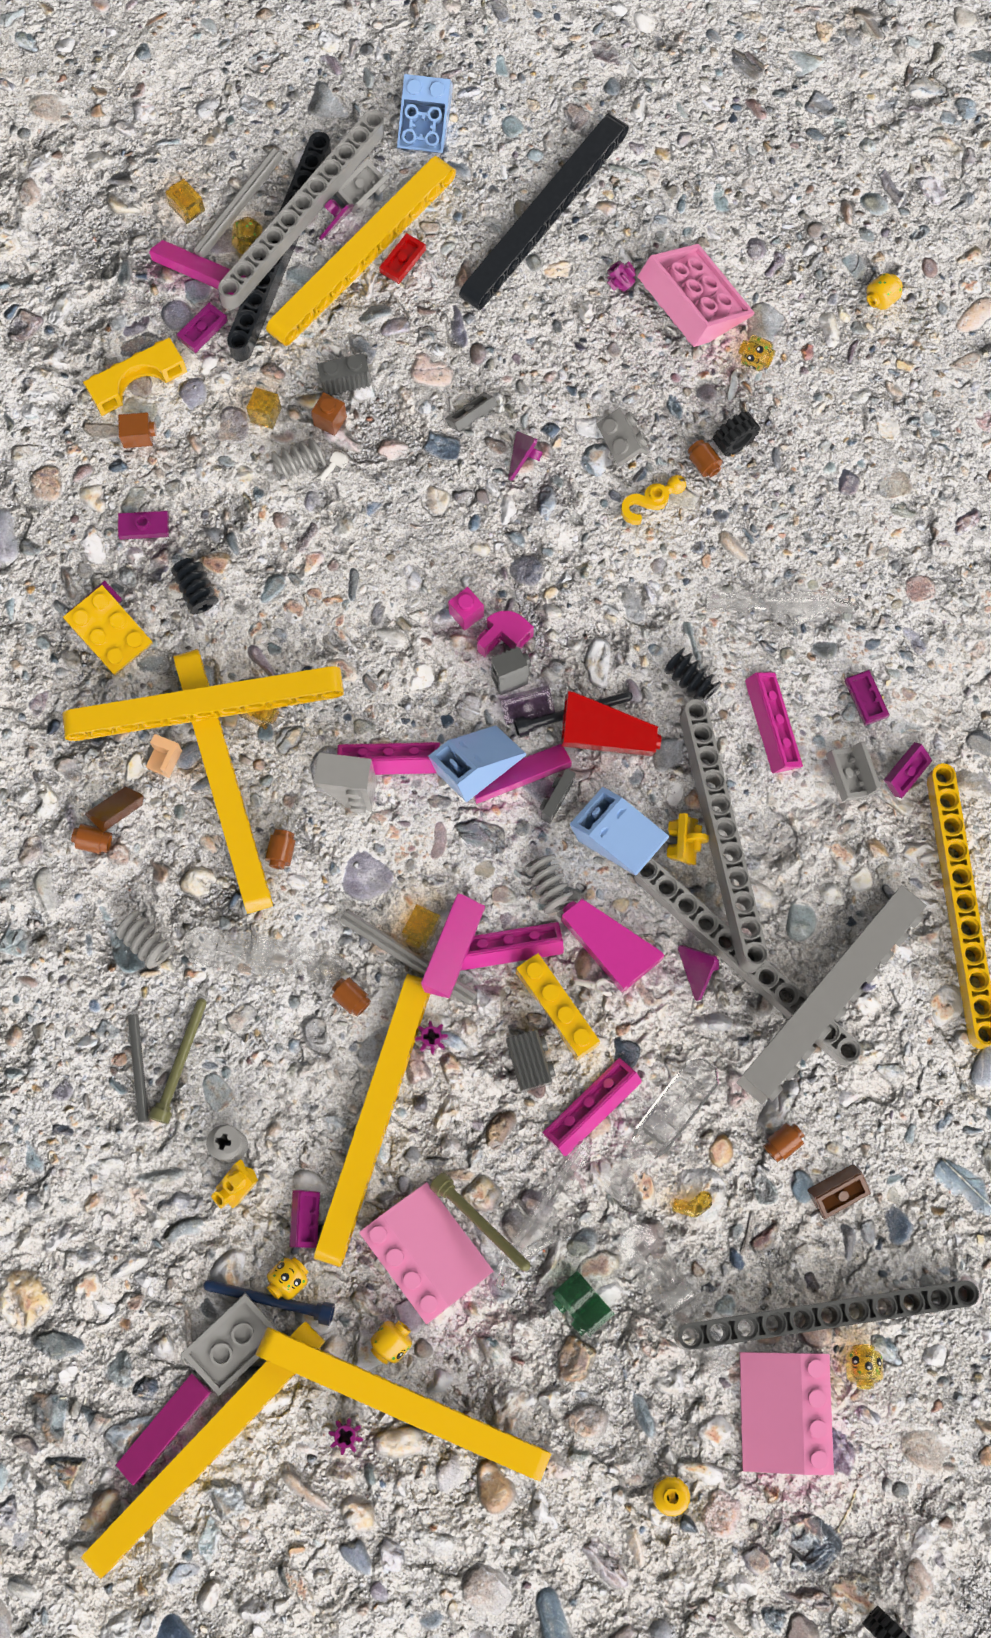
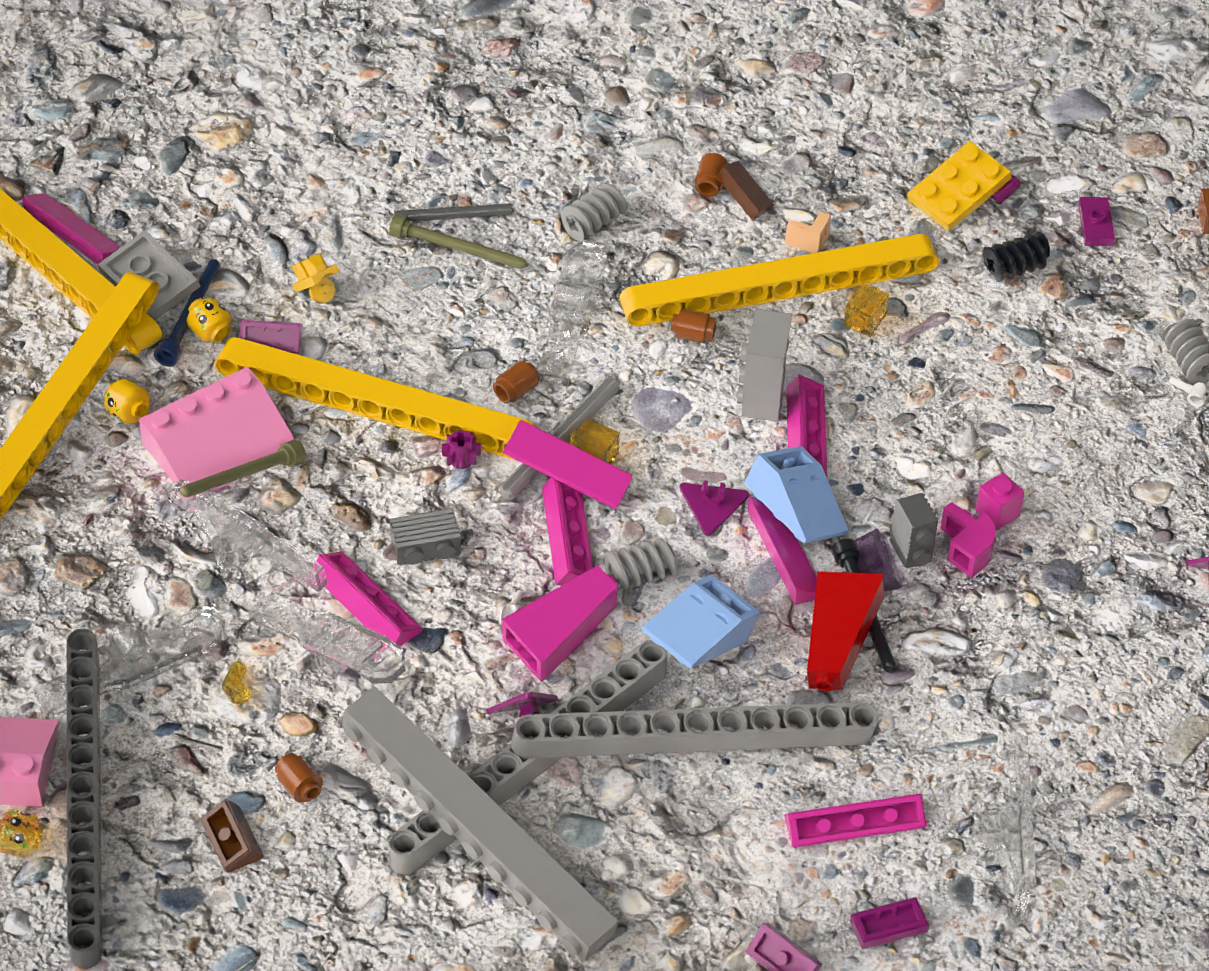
camera: 90 degrees right, 25 degrees down
(203, 703) = (865, 253): yellow beam -> none
(223, 1134) = (358, 268): light grey piece -> none
(345, 1444) = (36, 363): magenta gear -> none
(471, 832) = (712, 504): none -> magenta piece
(552, 804) = (753, 580): dark grey plate -> none
(559, 1007) = (456, 575): yellow arch -> none
(582, 1304) = (138, 570): clear green brick -> none
(654, 498) = (1171, 706): yellow piece -> none
(689, 839) = (689, 697): yellow hips -> none
(691, 676) = (914, 723): black piece -> none
(853, 772) = (779, 891): light grey bracket -> none

